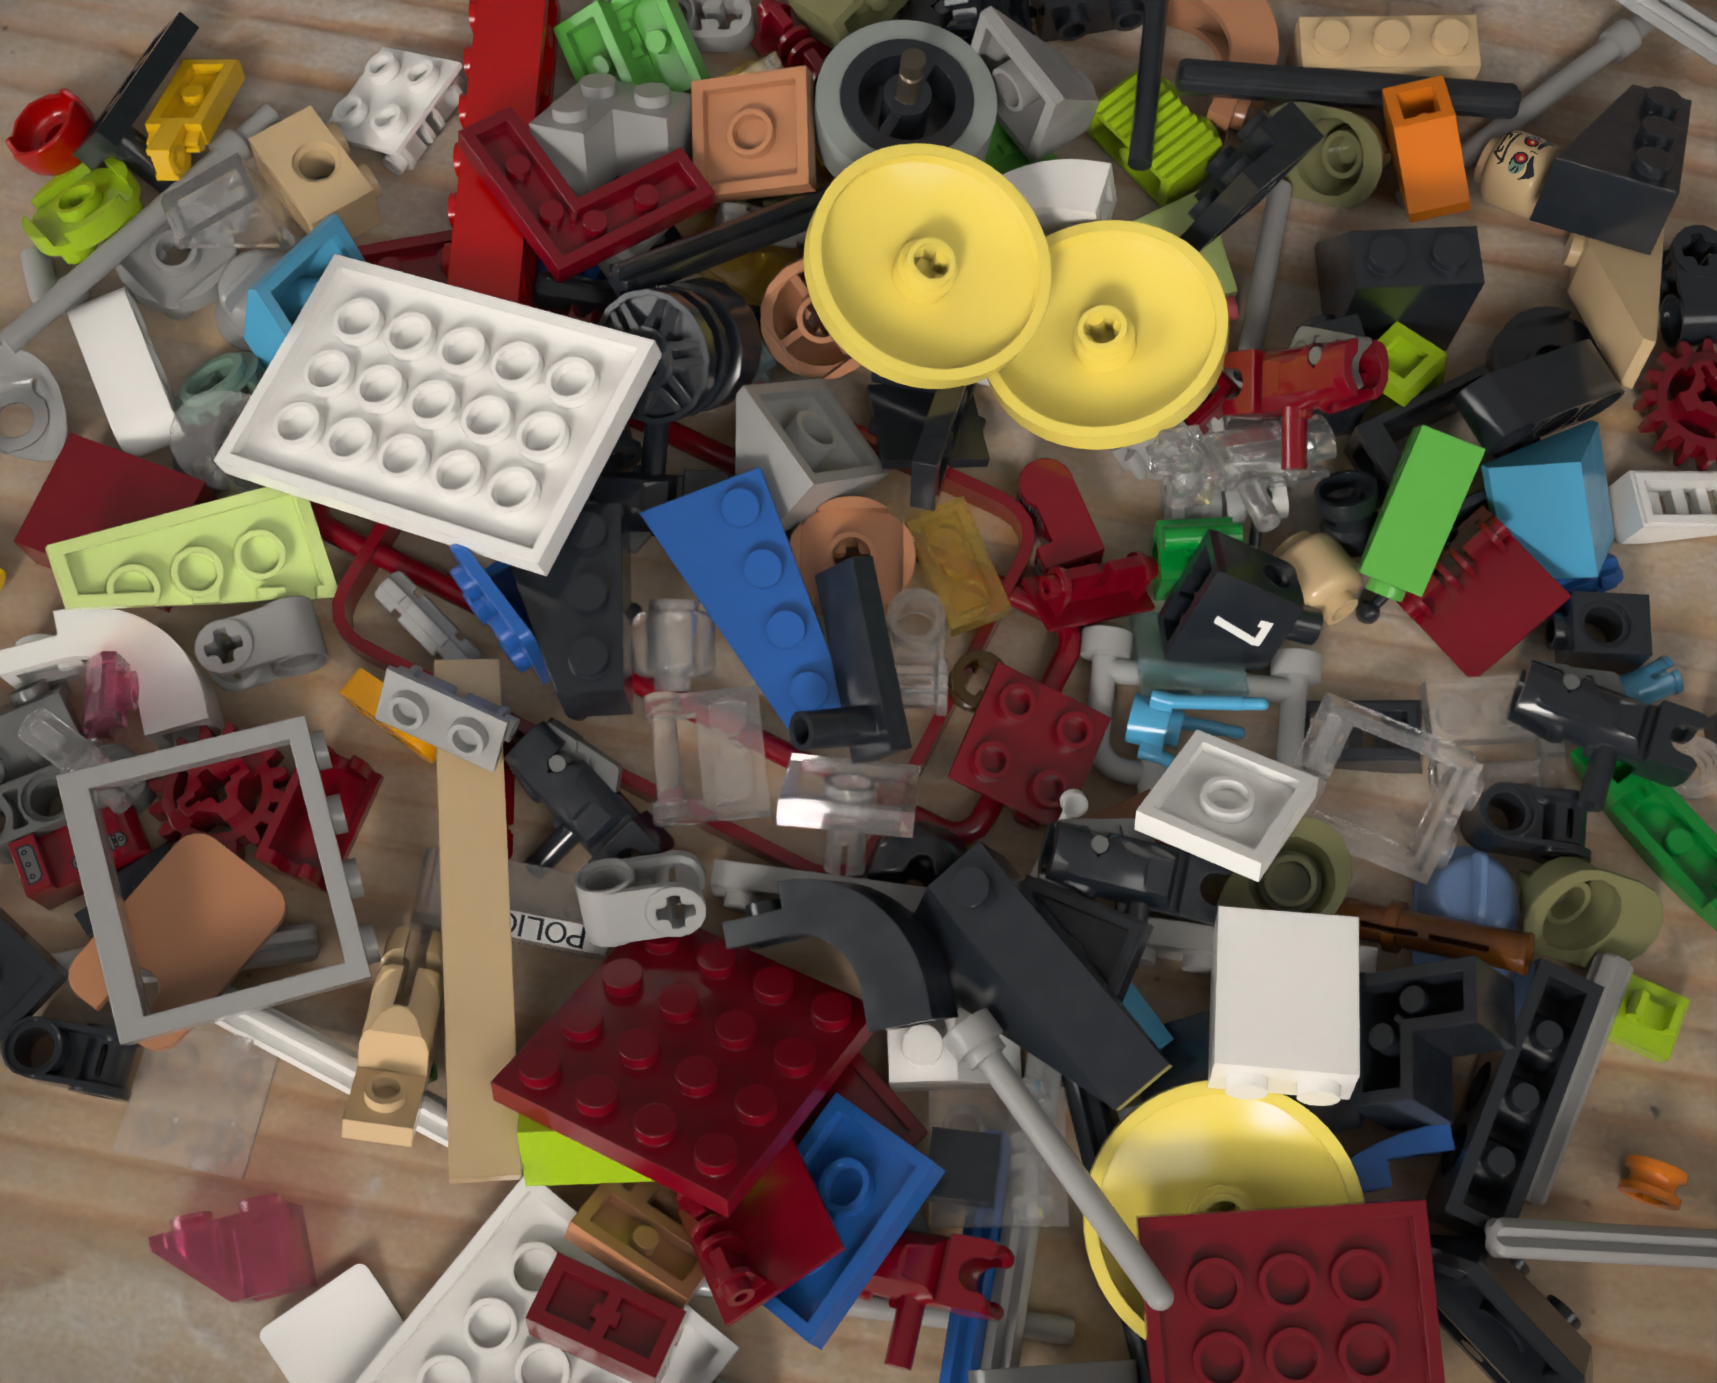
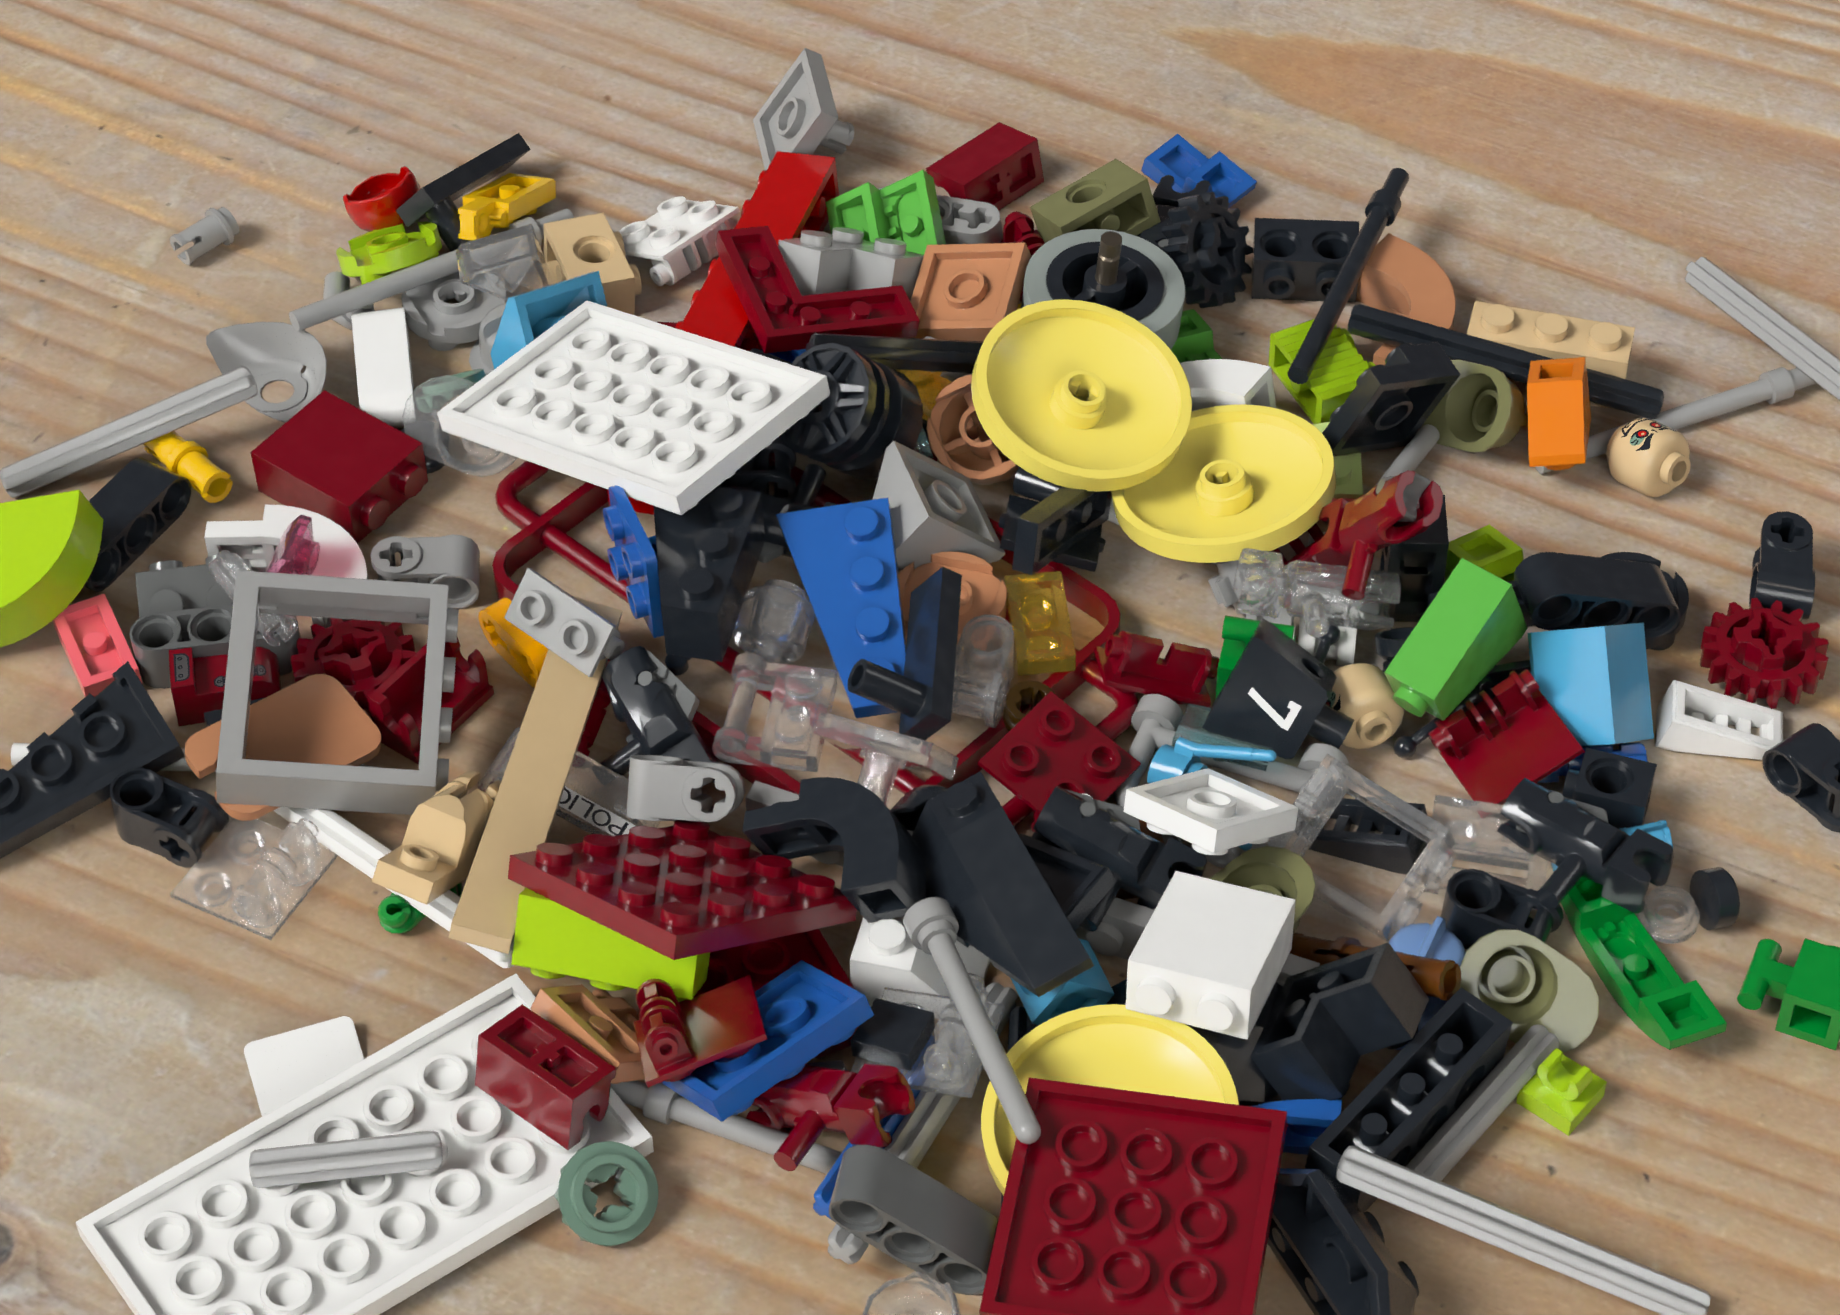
camera: 15 degrees right, 25 degrees down
(207, 554) = (399, 486): yellowish green wing -> none
(246, 1254) = (253, 980): clear pink slope -> none
(424, 619) = (565, 574): light grey axle -> none
(1037, 89) = (1220, 303): light grey slope -> none
(1058, 517) = (1144, 606): dark red leg -> none
(1402, 276) = (1503, 485): black slope -> none
(1617, 300) = (1706, 542): tan slope -> none
(1620, 171) = (1725, 454): black wedge -> none
(1653, 1182) = (1527, 1197): orange bush -> none

